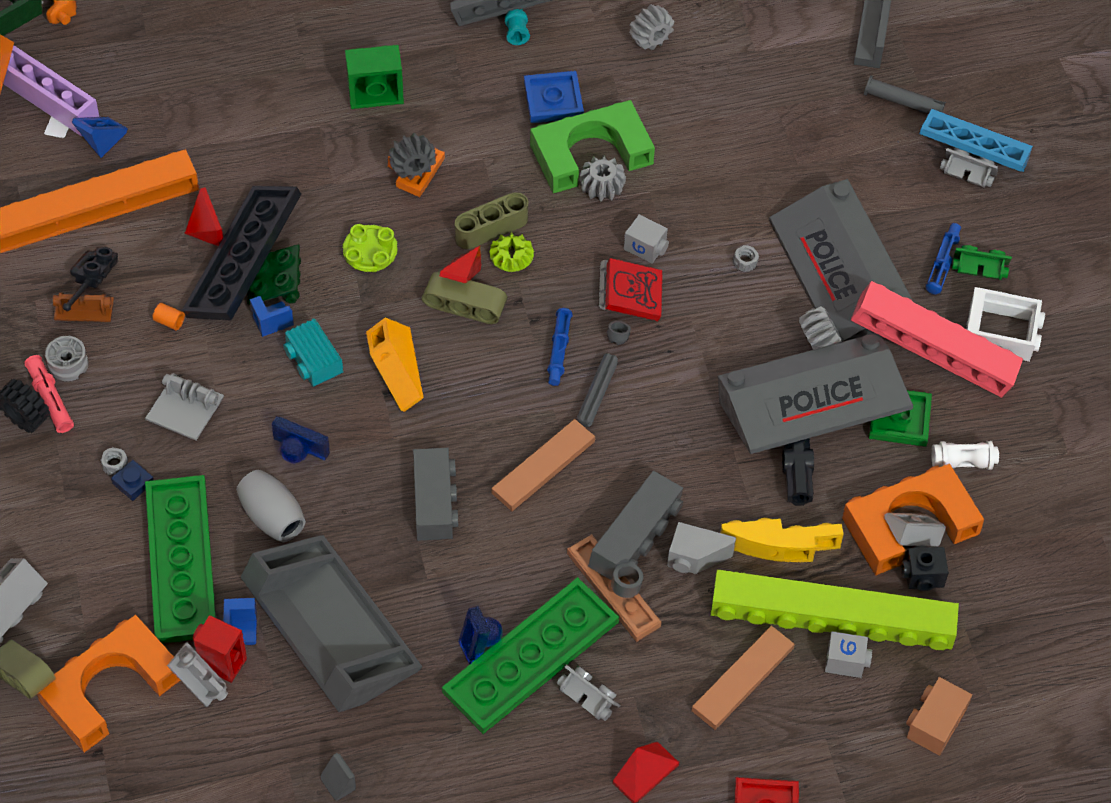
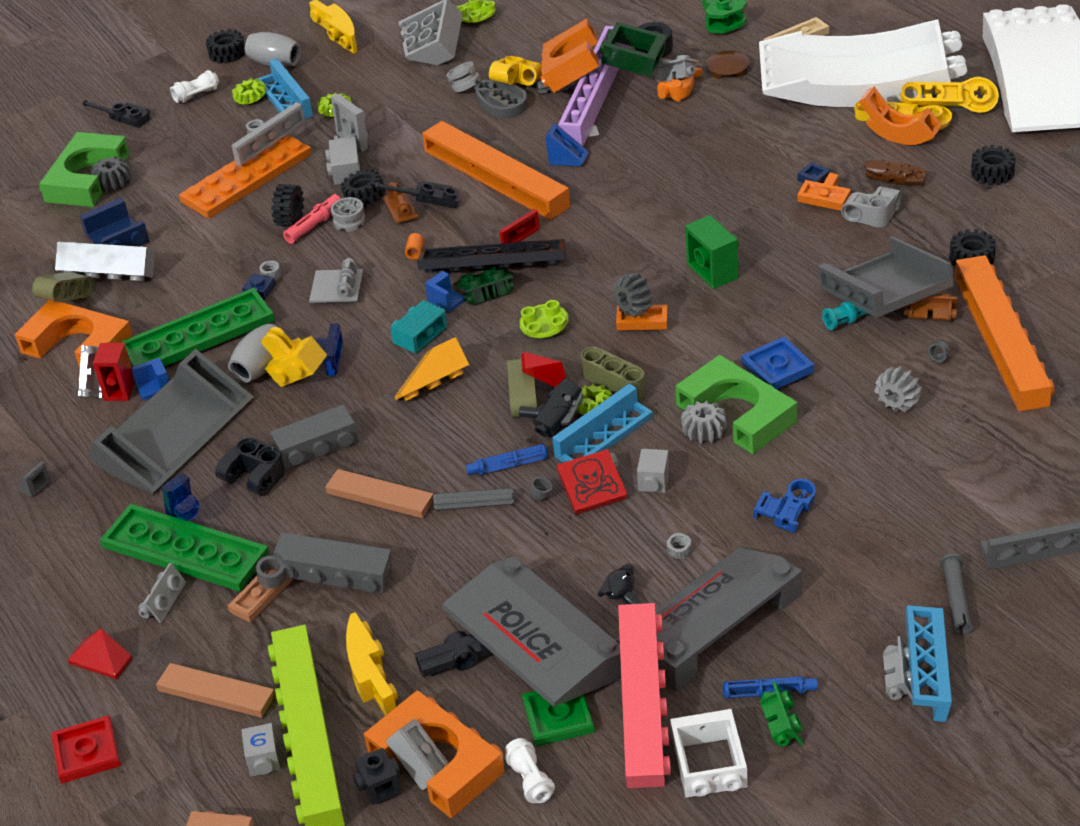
camera: 75 degrees right, 15 degrees down
(23, 318) = (363, 186): none -> black tyre
(315, 472) = (291, 358): none -> yellow brick
(445, 556) = (255, 458): none -> black piece
(524, 279) = (558, 409): none -> black piece
(557, 262) = (598, 421): none -> dark azure fence
(698, 549) = (329, 610): light grey slope -> none
(743, 163) = (789, 508): none -> blue piece
(777, 314) = (620, 585): none -> black piece
(819, 328) = (605, 610): light grey gear -> none

